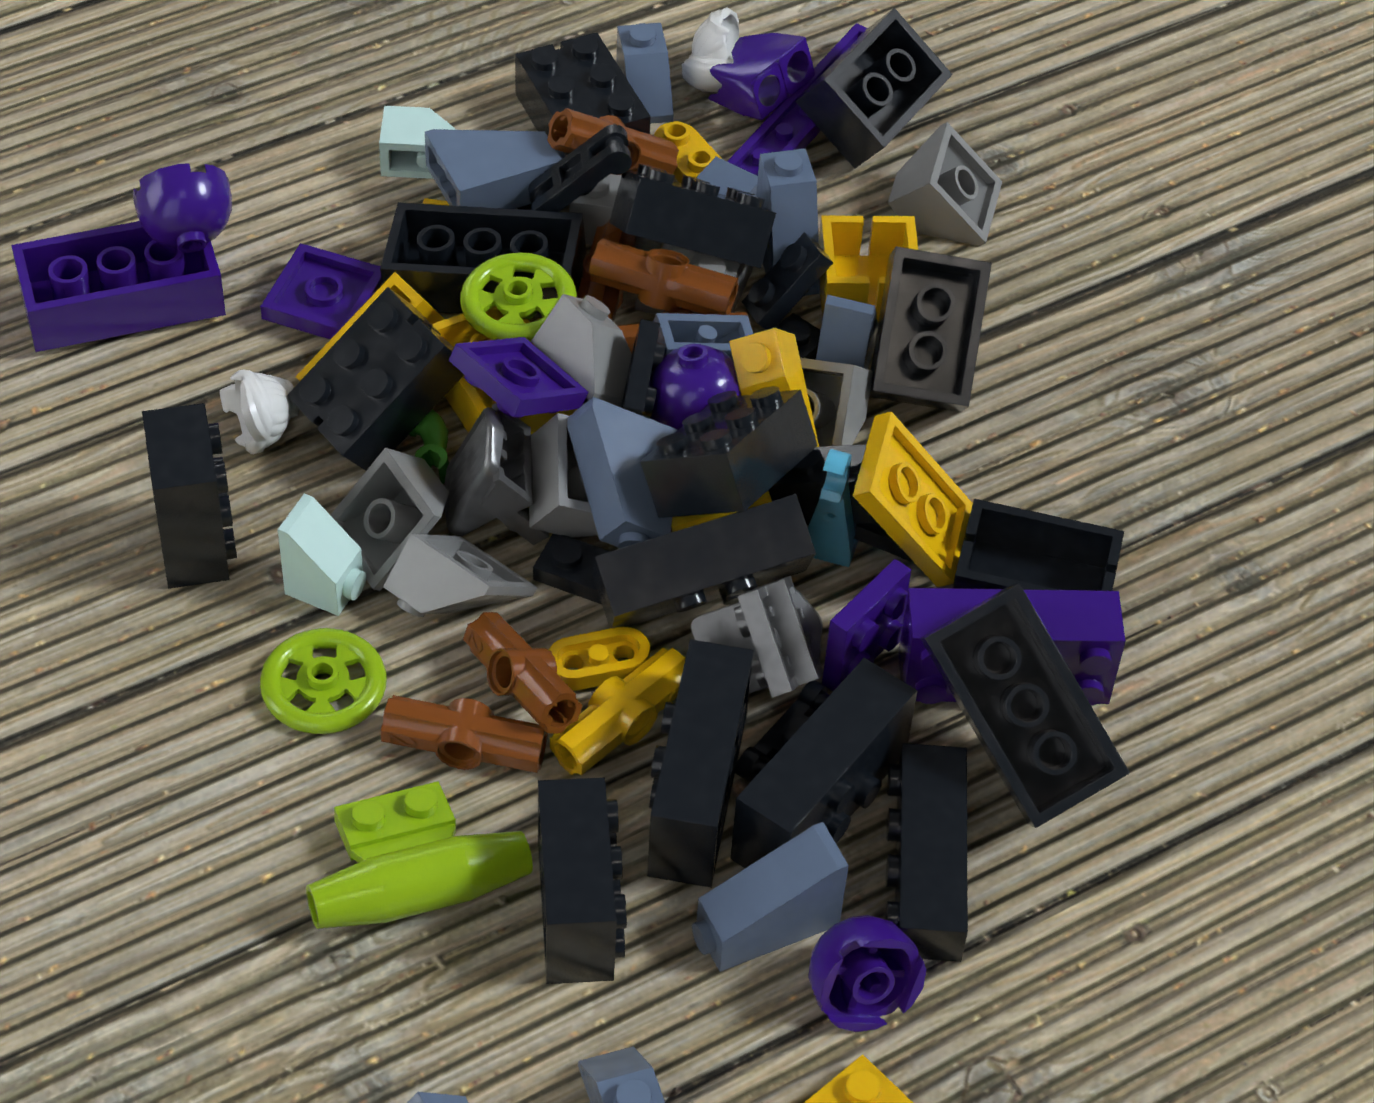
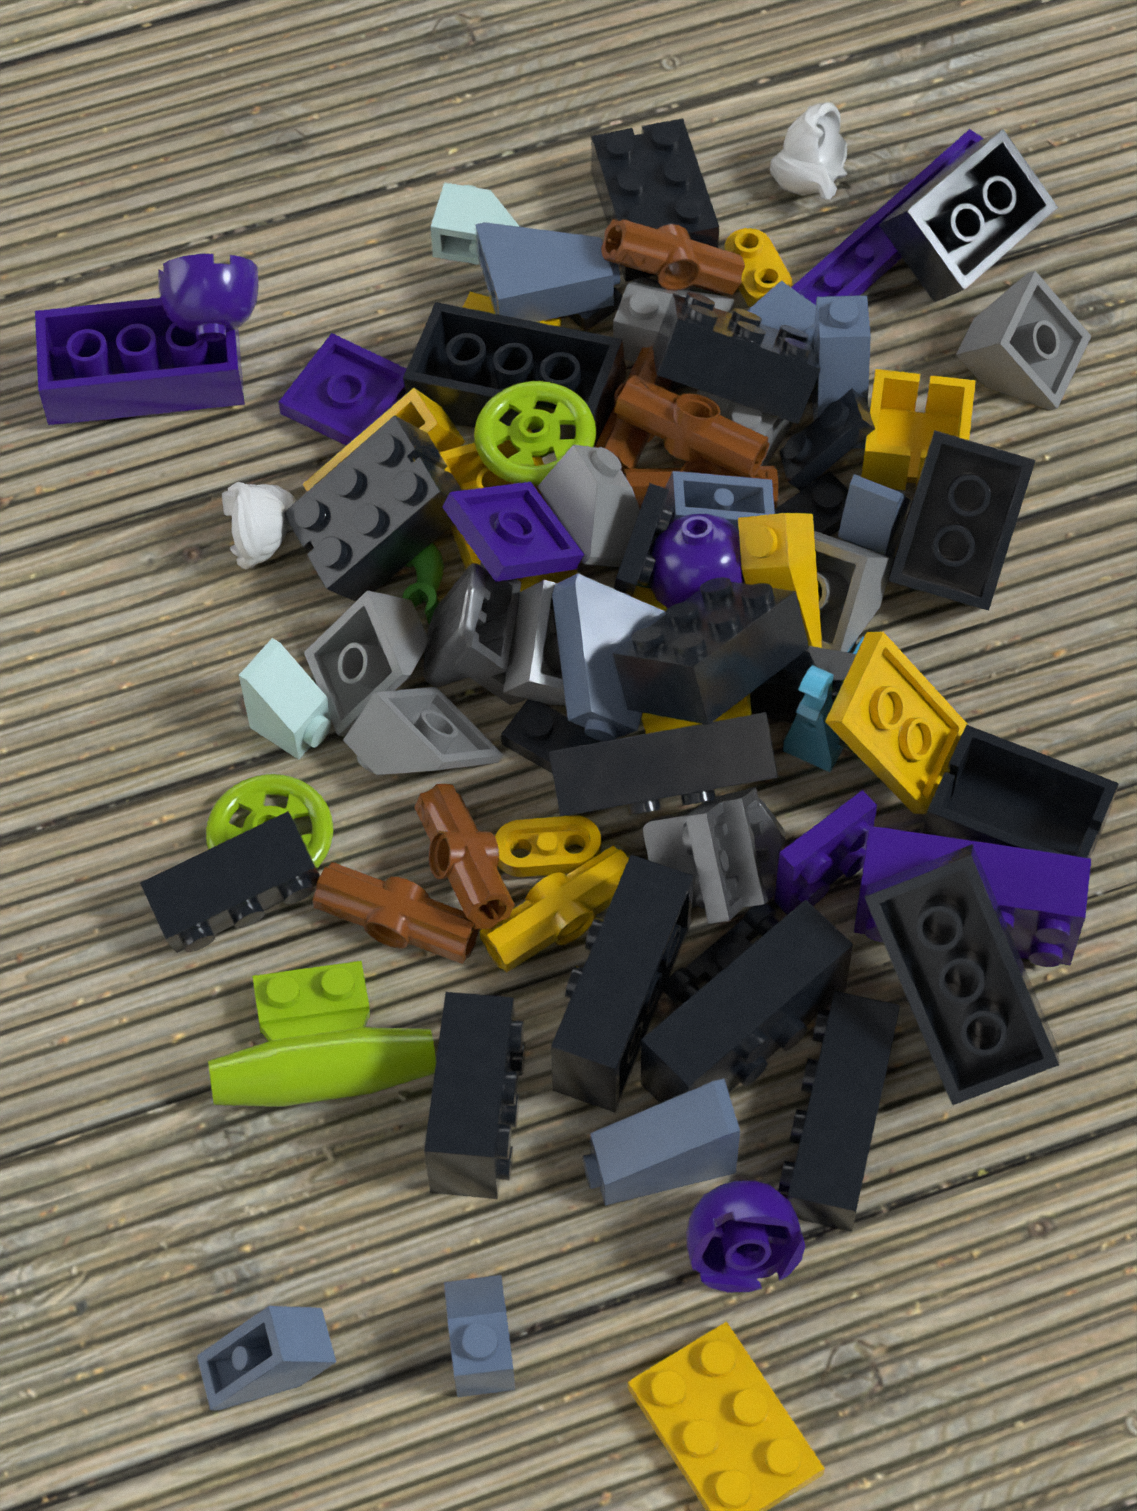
camera: 15 degrees right, 10 degrees up
(189, 494) = (160, 619): black brick -> none
(299, 724) = (232, 884): none -> black brick
(582, 170) = (628, 291): black plate -> none
(645, 64) = (730, 166): sand blue slope -> none
(755, 57) = (840, 195): dark purple piece -> none

